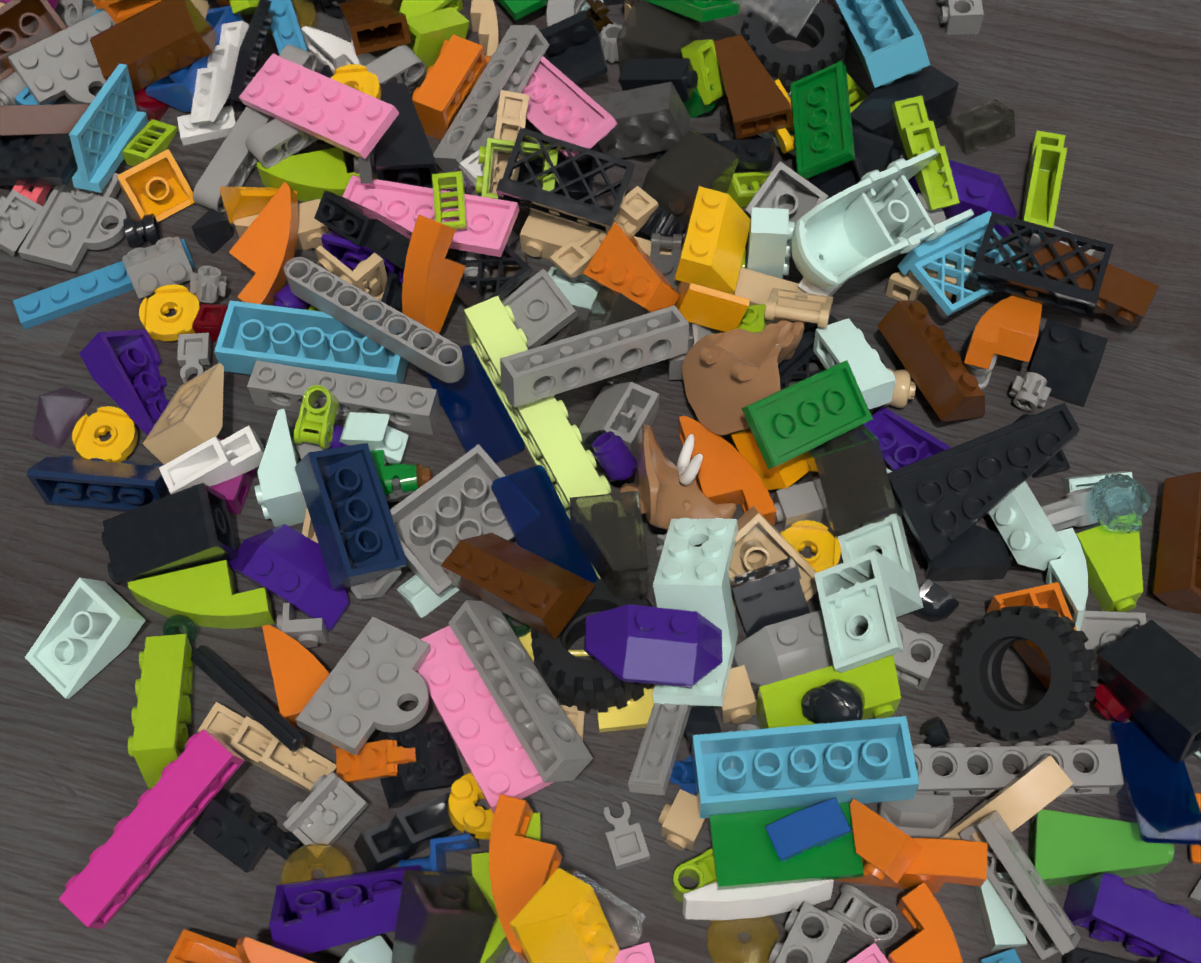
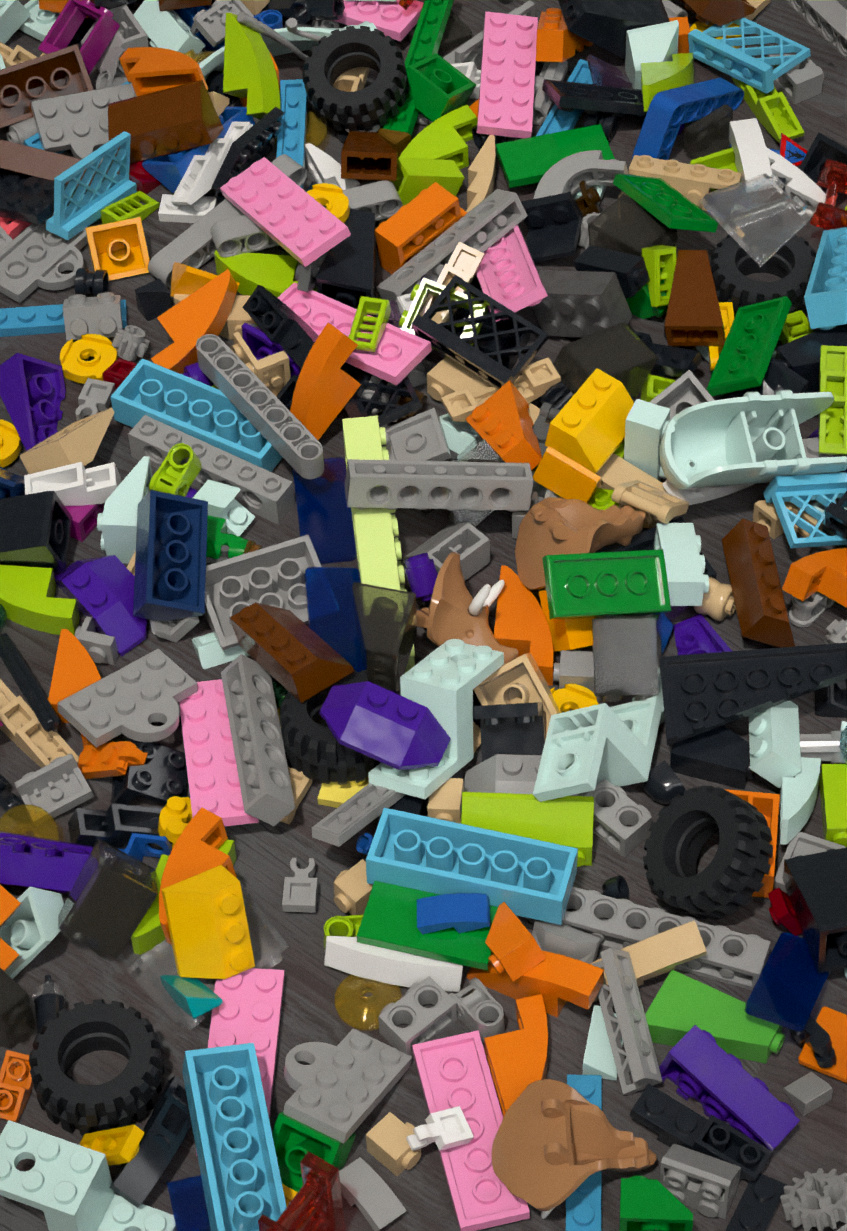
camera: 20 degrees right, 10 degrees down
(834, 702) = (525, 822): black hair -> none

